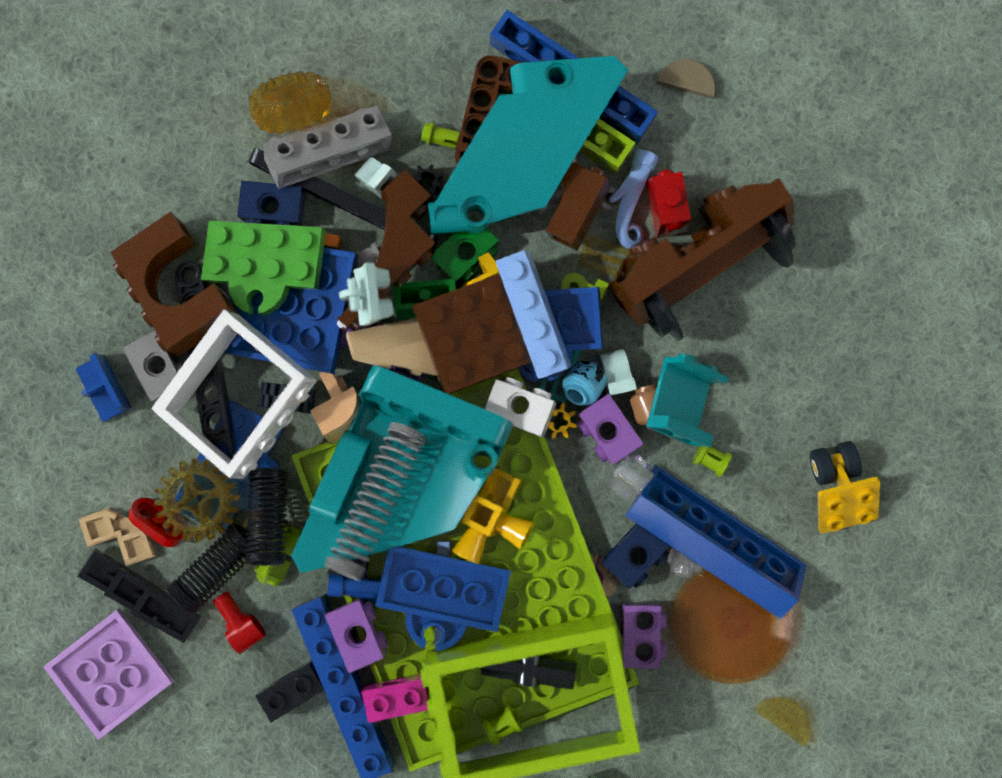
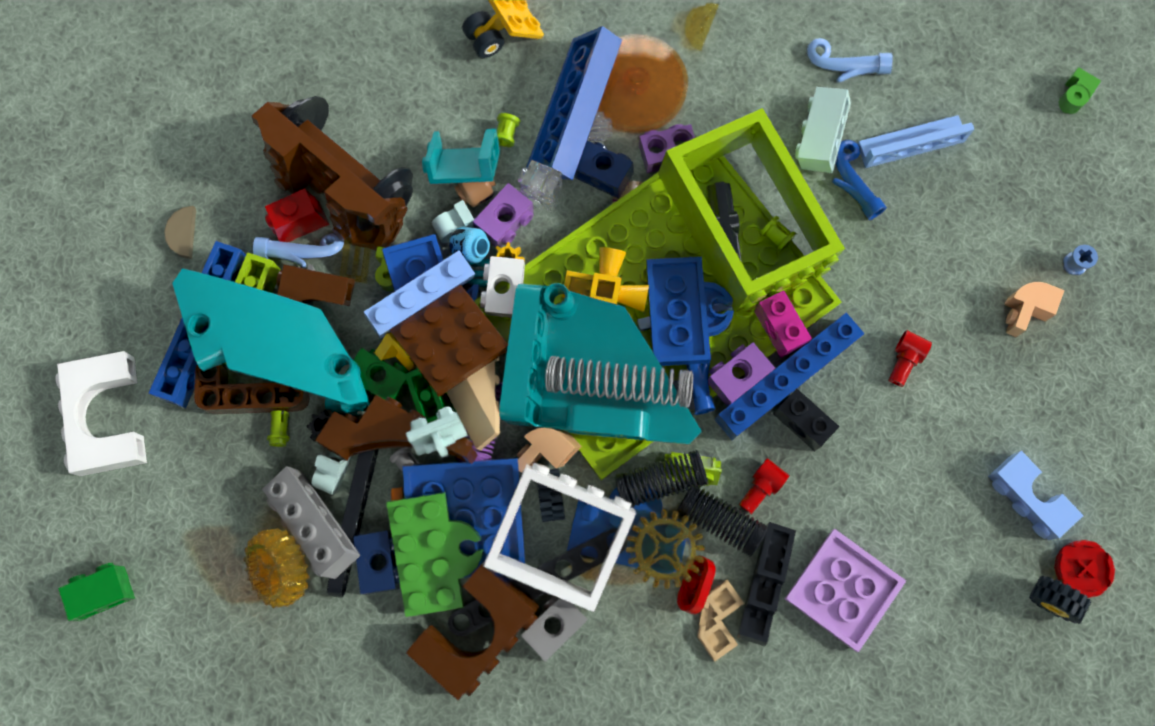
camera: 105 degrees left, 10 degrees down
(103, 387) = (588, 675): blue panel -> none

